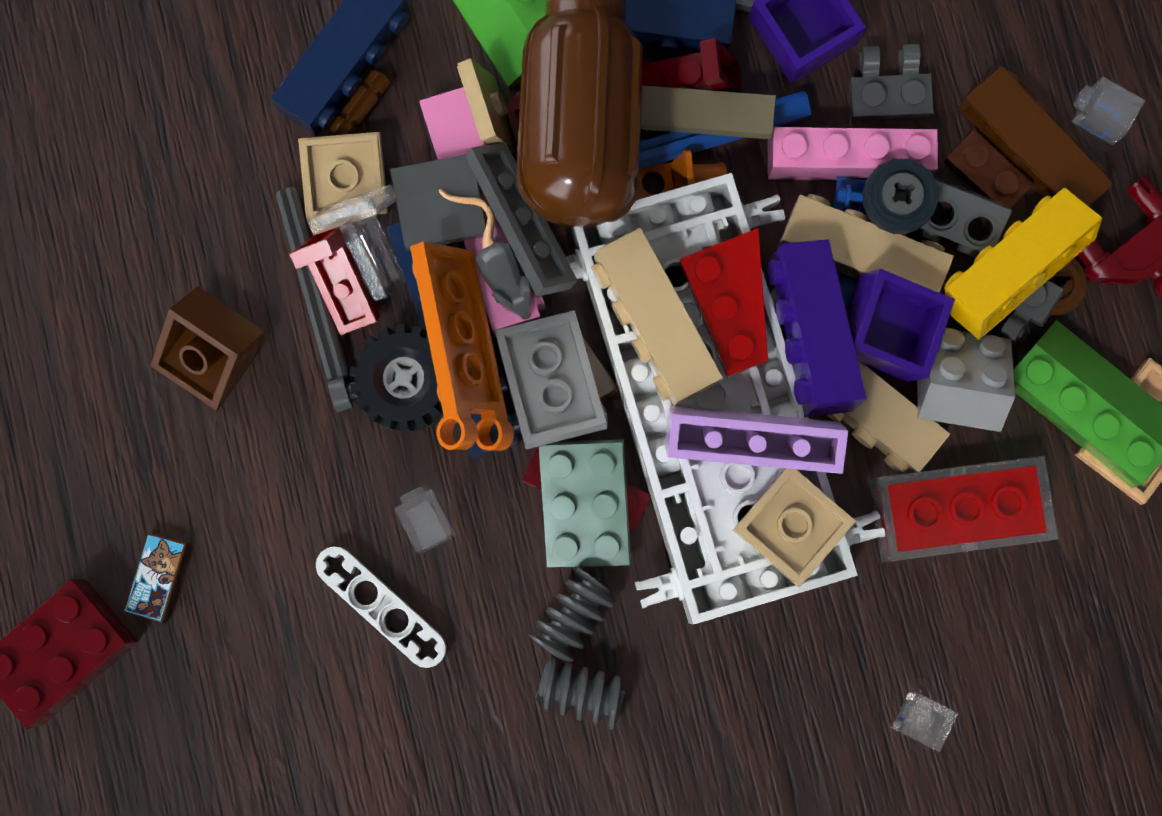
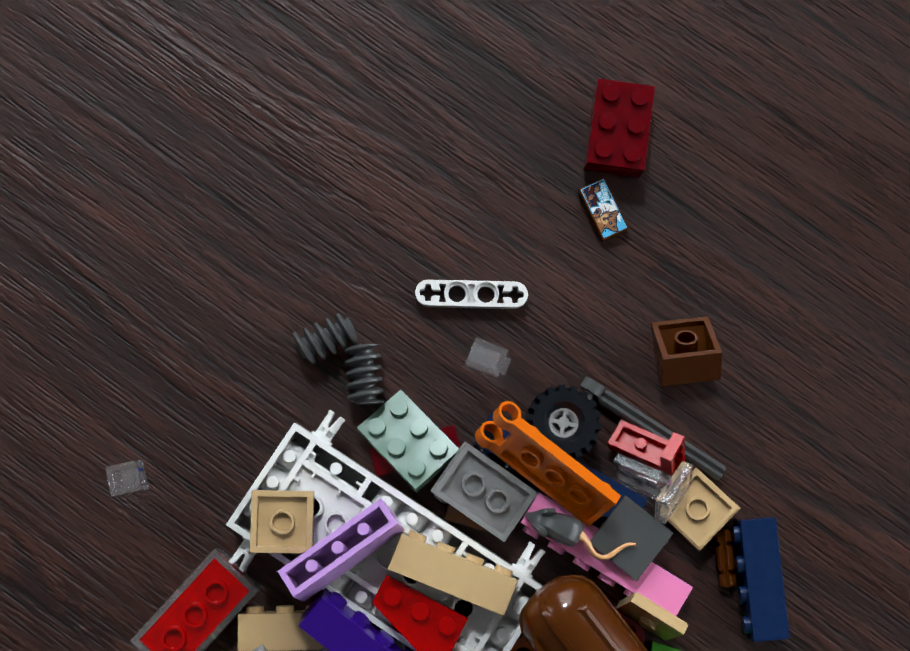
camera: 135 degrees right, 0 degrees up
(524, 229) = (565, 560): dark grey plate -> none

